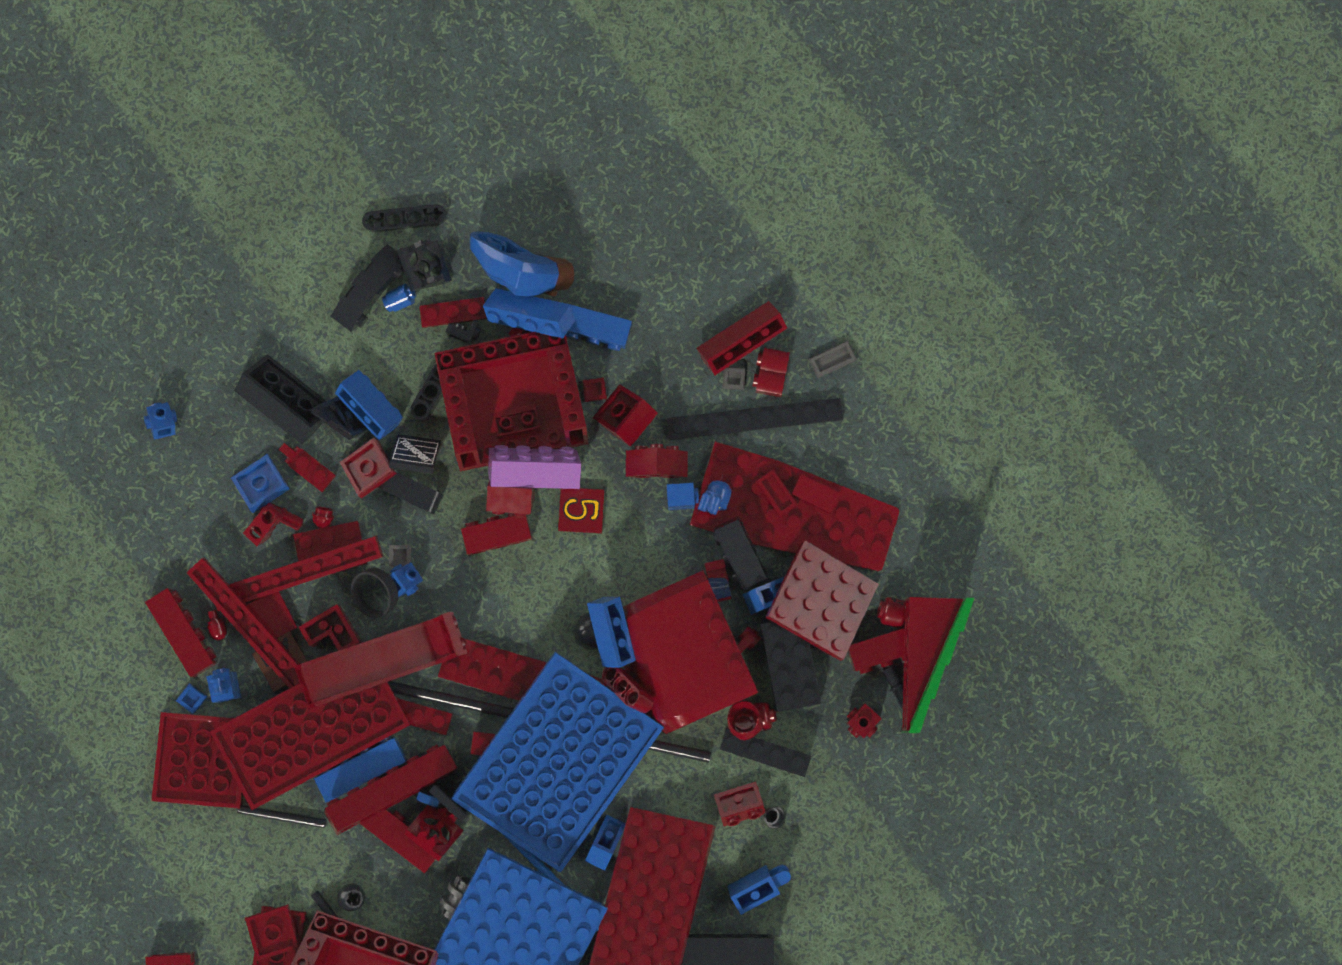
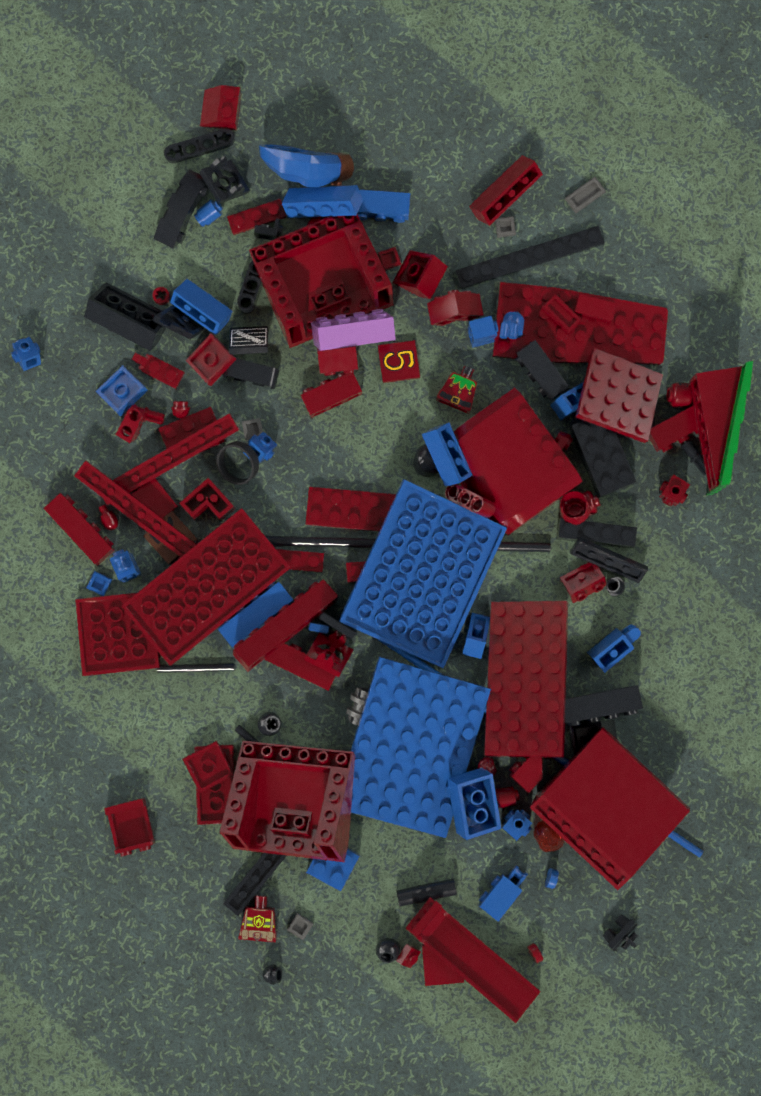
camera: 10 degrees left, 0 degrees up
(323, 388) = (163, 290): none -> dark red bush
(380, 660) = (255, 516): dark red panel -> none
(438, 179) = (221, 107): none -> dark red slope
(642, 557) = (459, 390): none -> torso
(718, 579) = (525, 388): leg -> none
(772, 372) = (537, 215): dark red brick -> none
(772, 786) = (609, 560): none -> black tile

